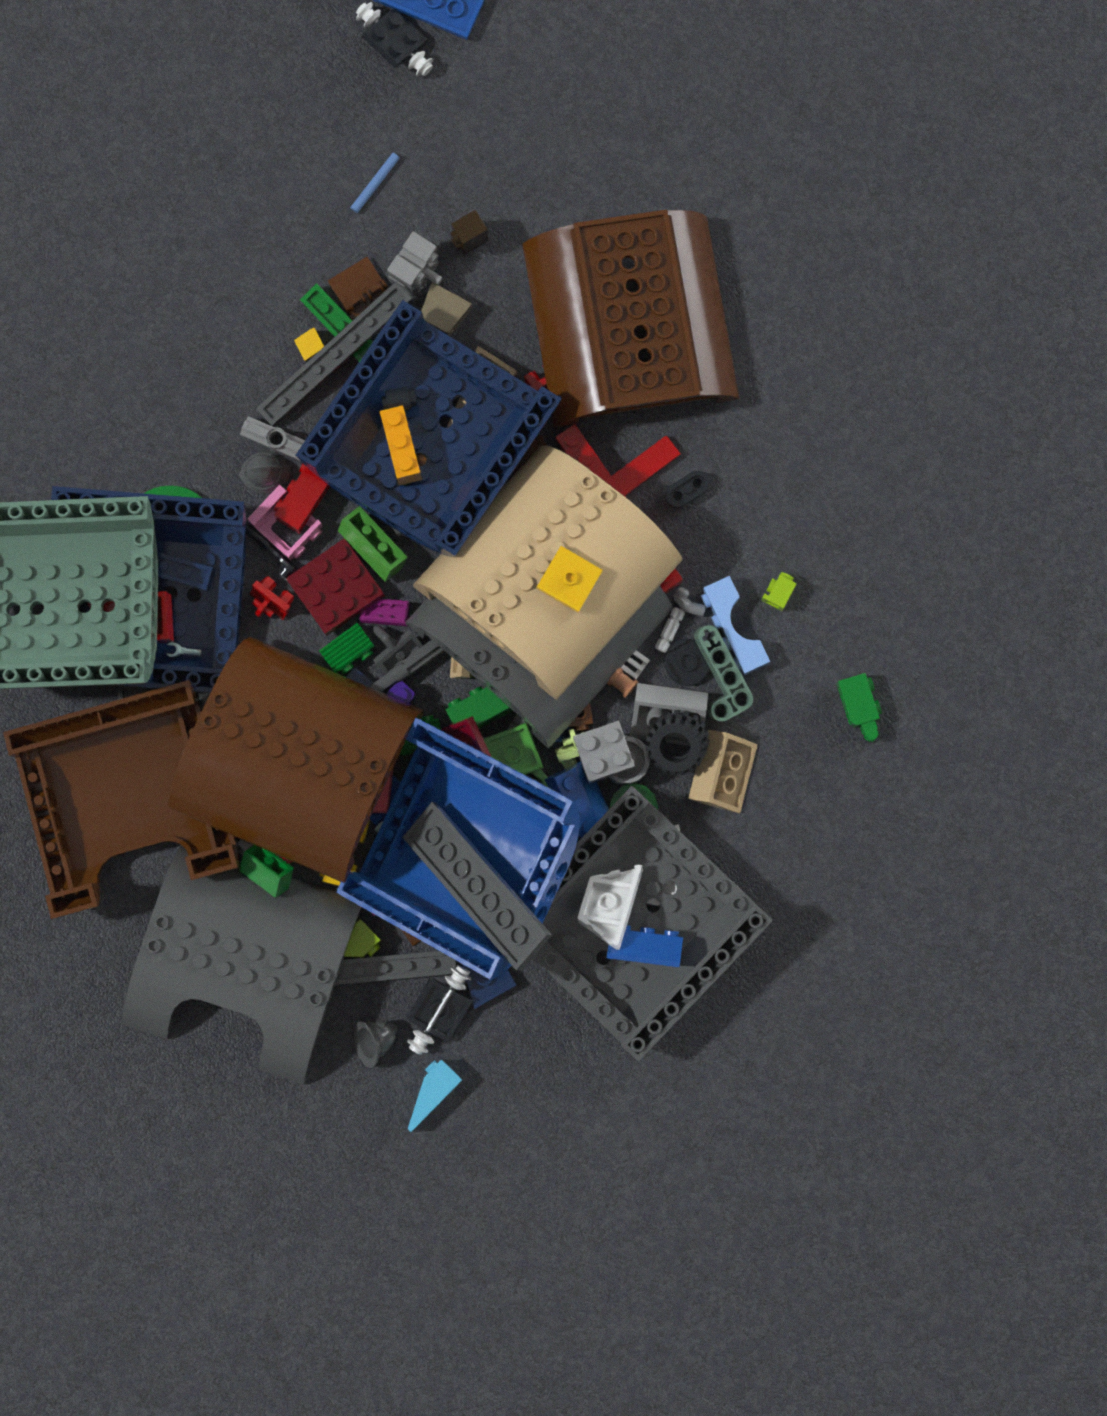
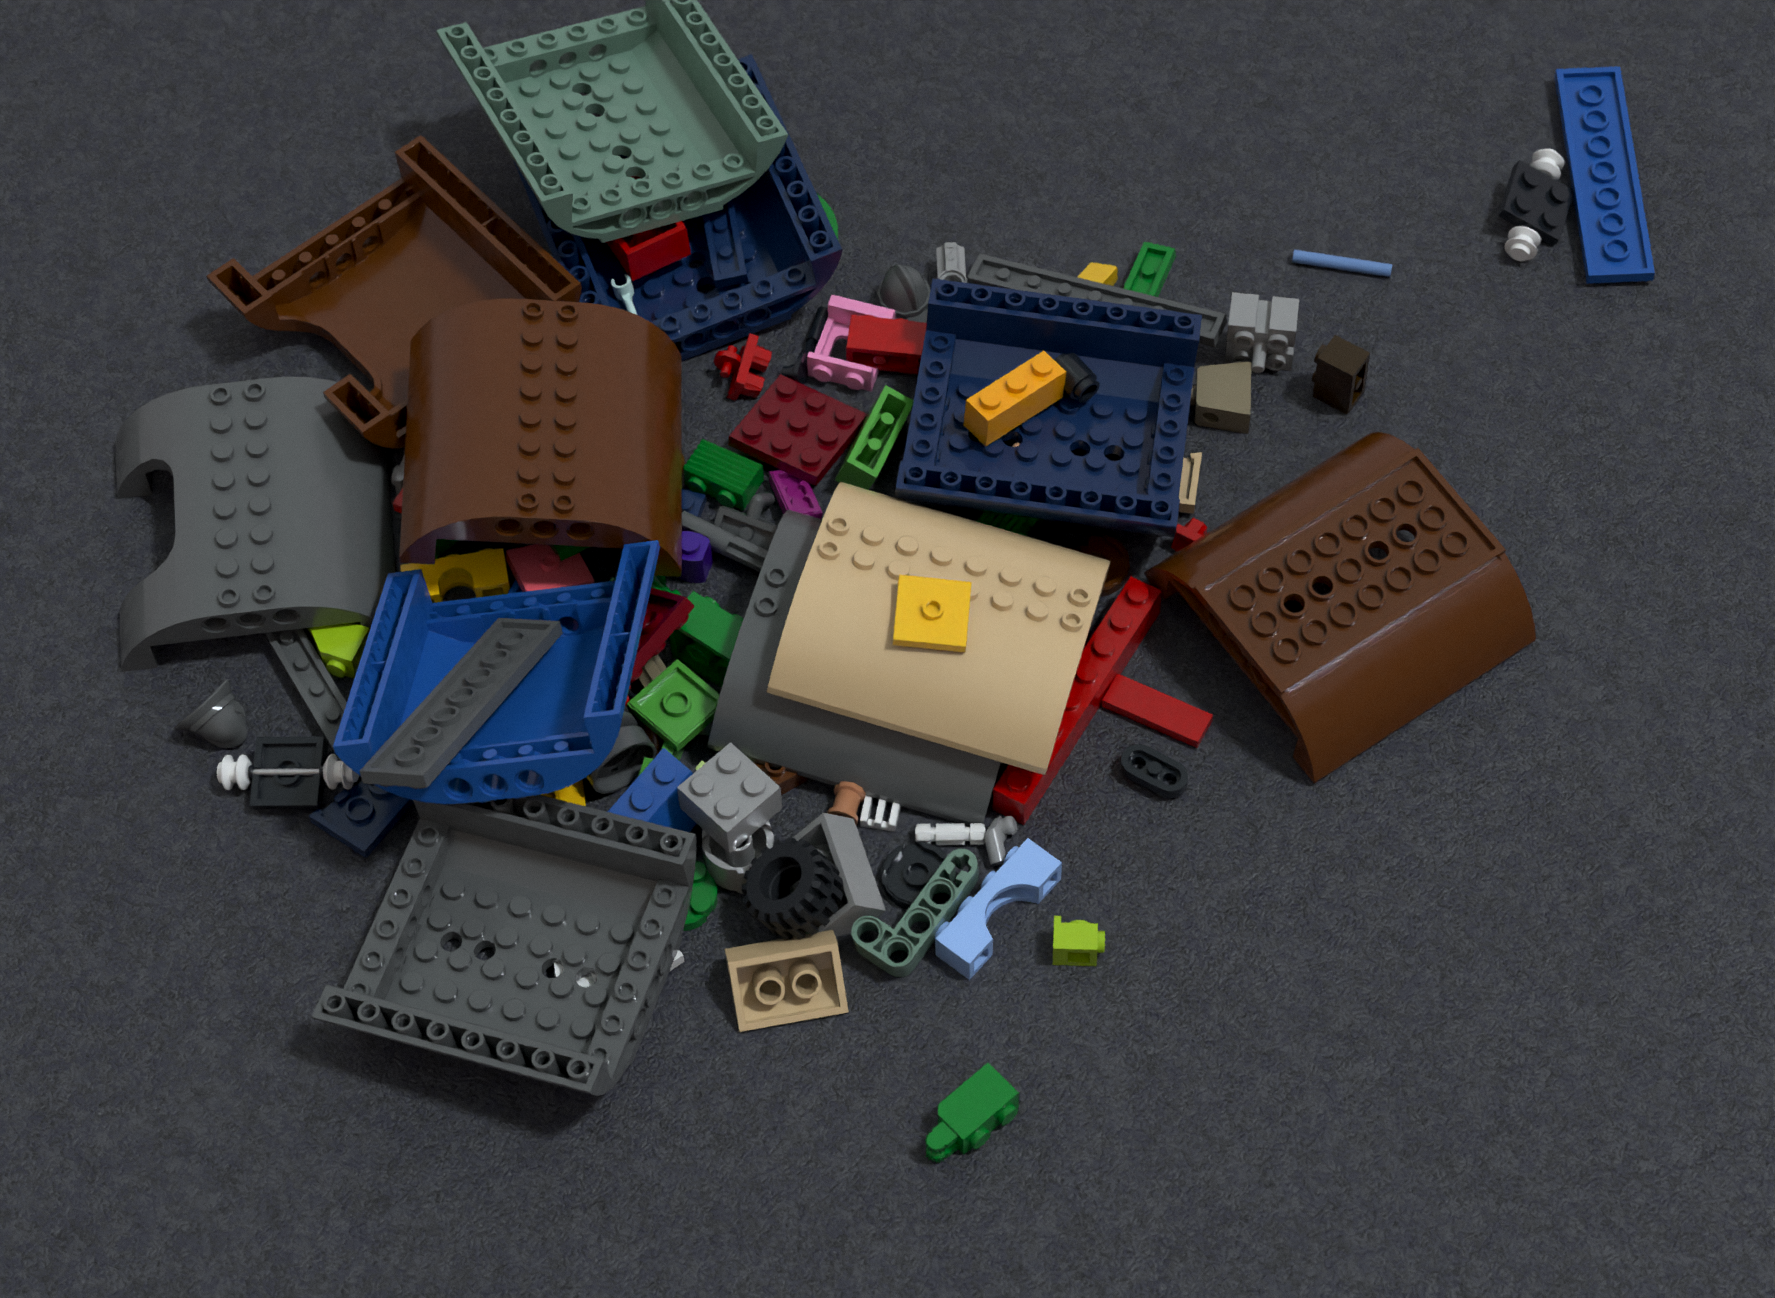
camera: 65 degrees right, 25 degrees down
(266, 870) = (379, 486): green brick -> none
(358, 287) = (1199, 290): reddish brown hinge -> none
(434, 1090) = (171, 815): medium azure slope -> none
(609, 904) = (524, 896): white wing -> none
(649, 947) = (483, 966): blue slope -> none

